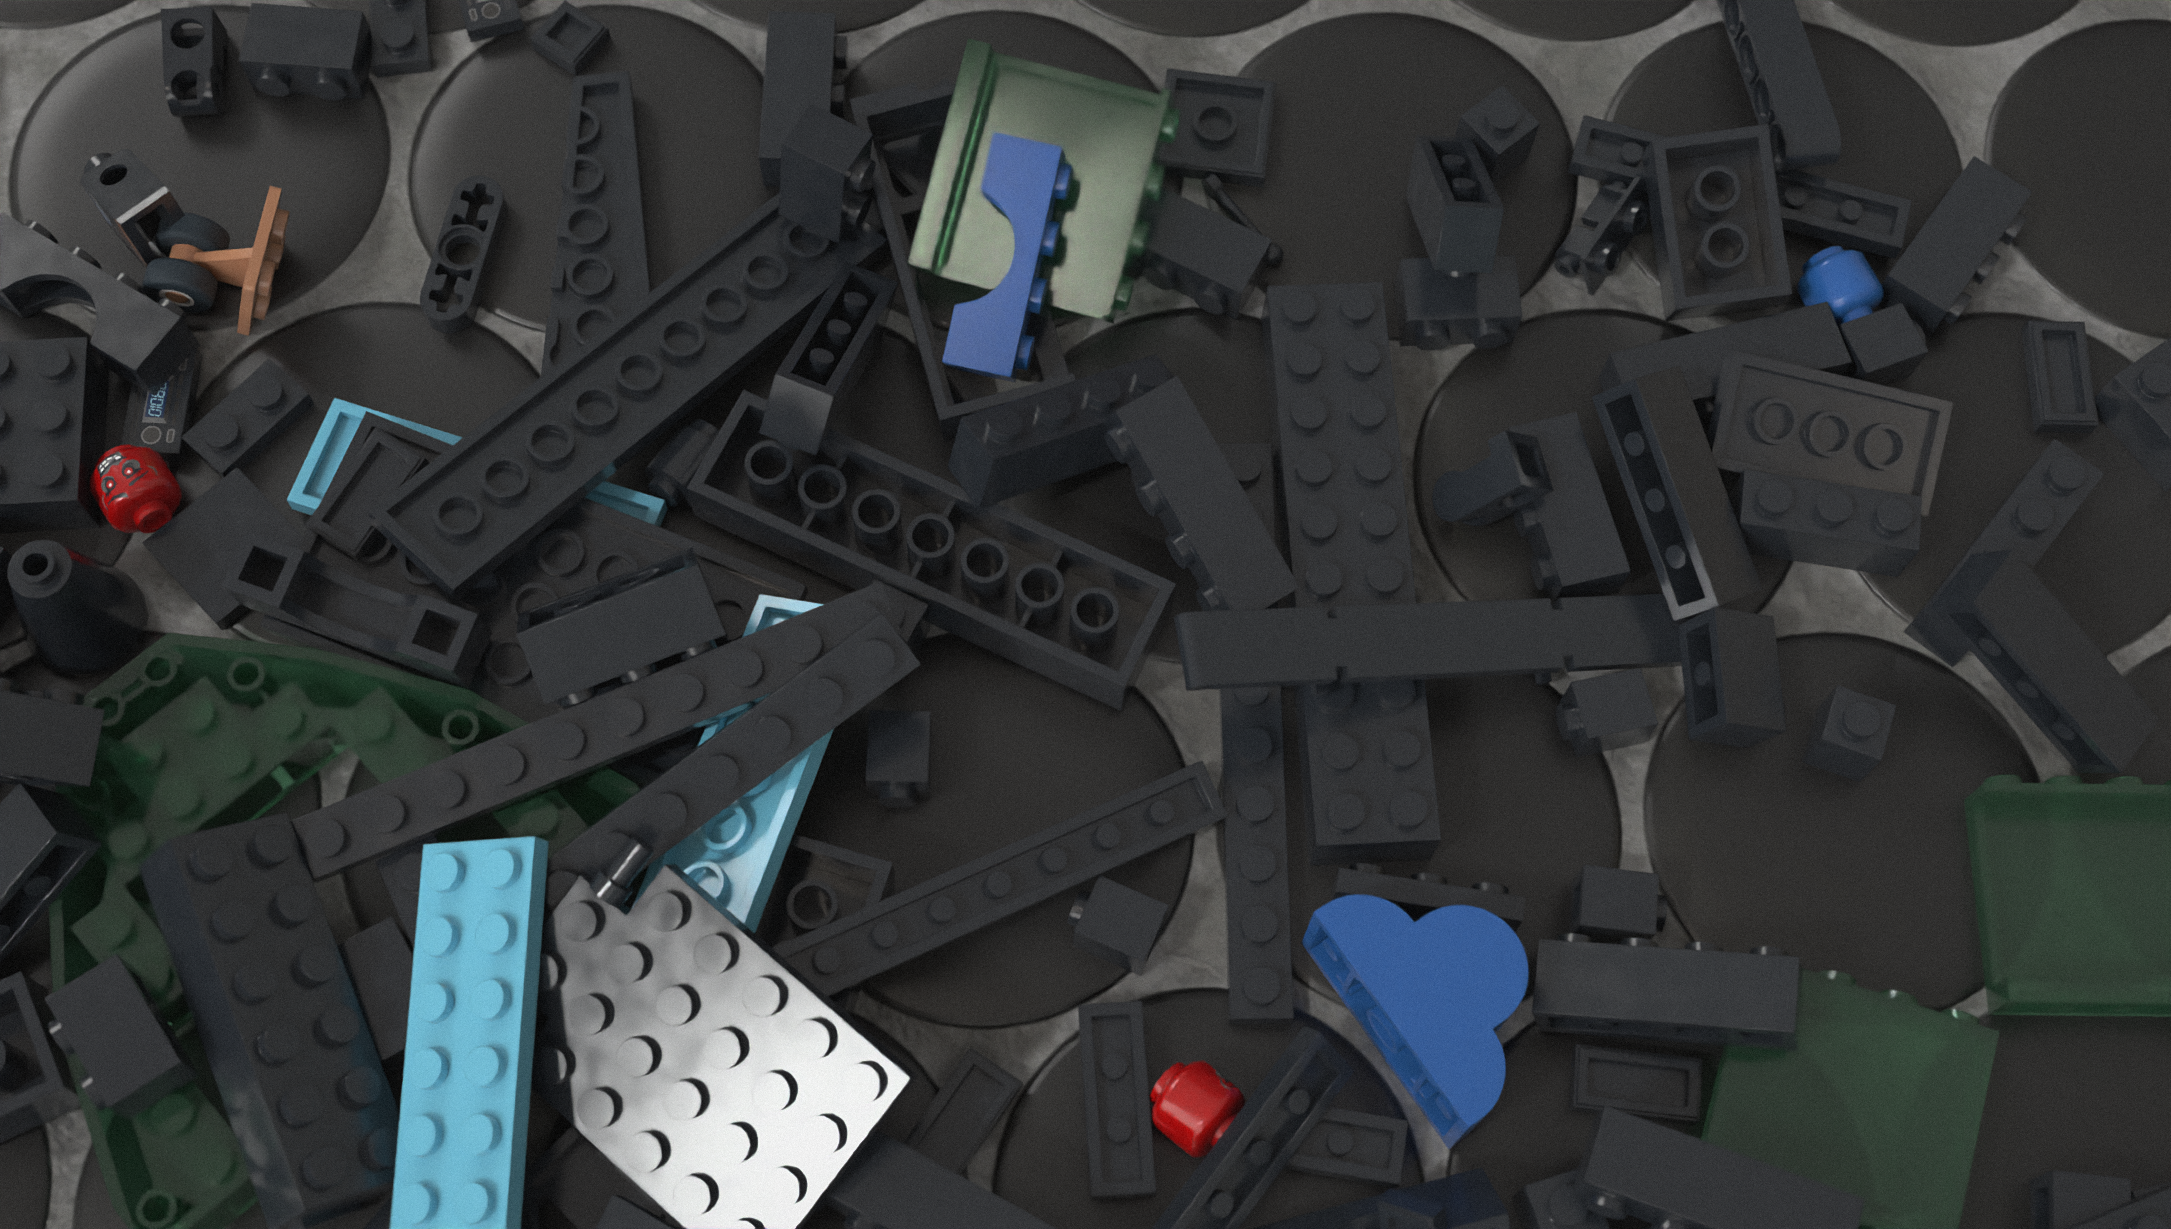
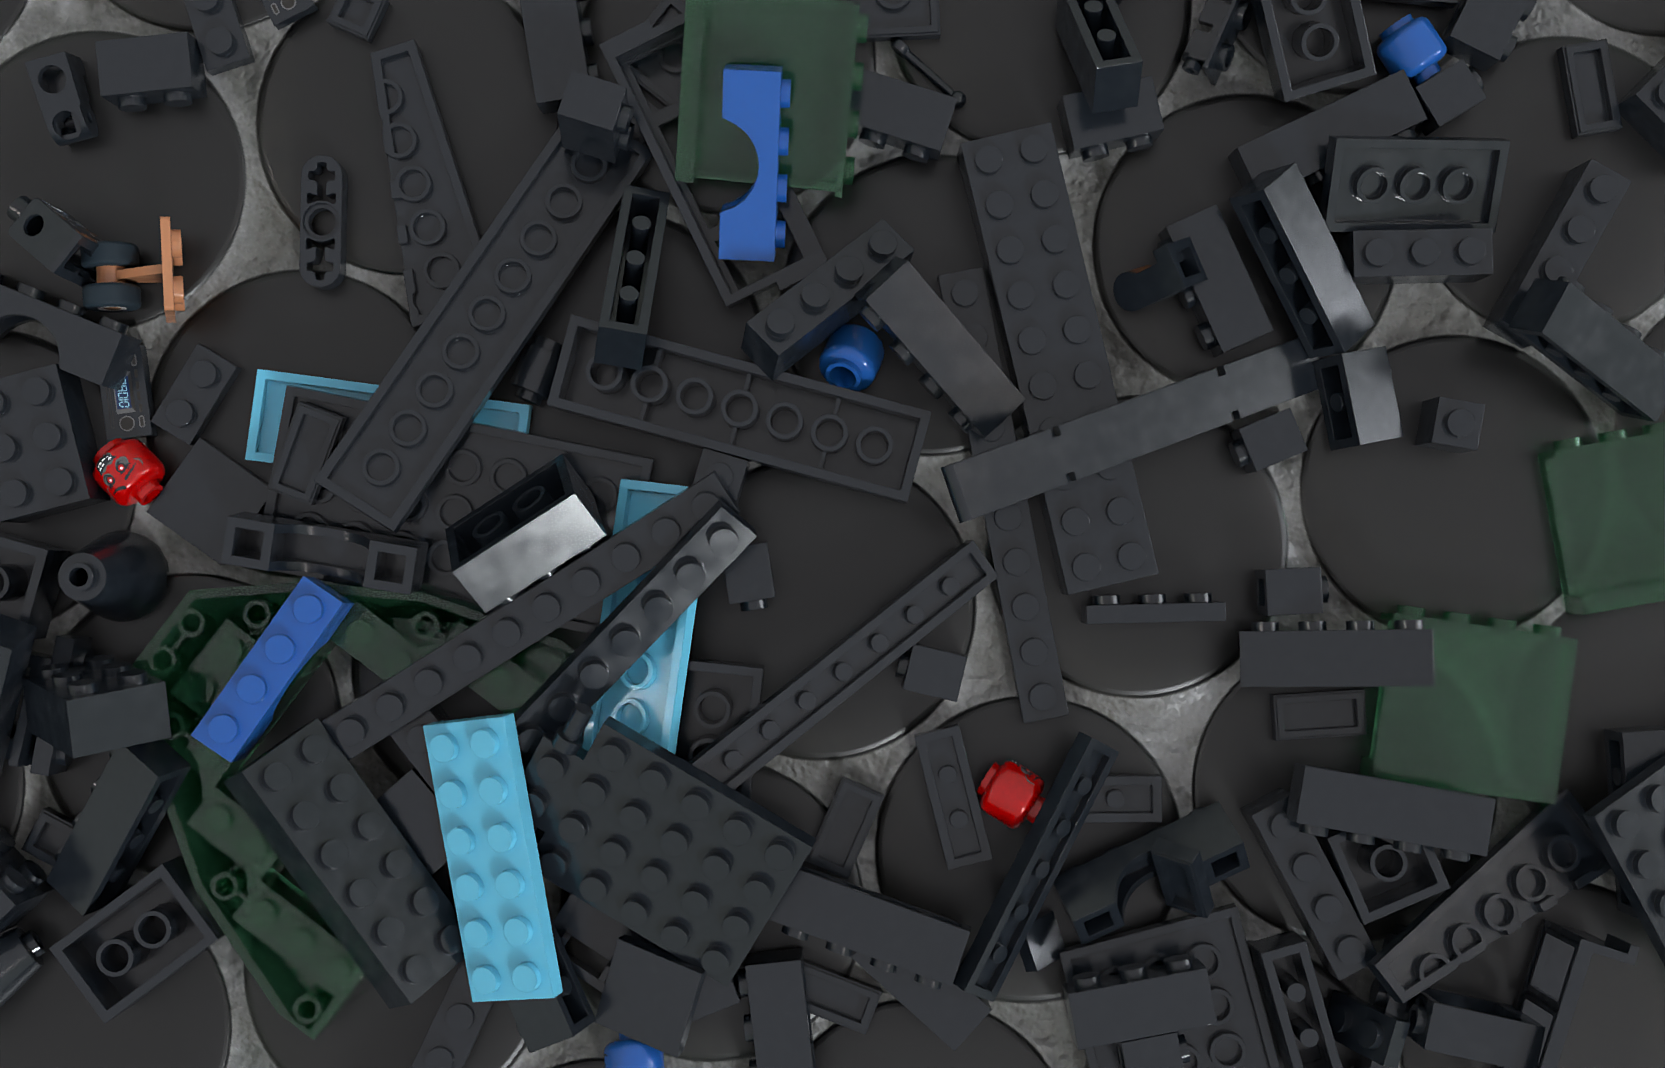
camera: 10 degrees left, 20 degrees up
(119, 1038) = (247, 905): black brick -> none
(197, 770) = (255, 689): none -> blue arch
(1088, 509) = (851, 357): none -> blue head
(1427, 997) = (1172, 691): blue brick -> none

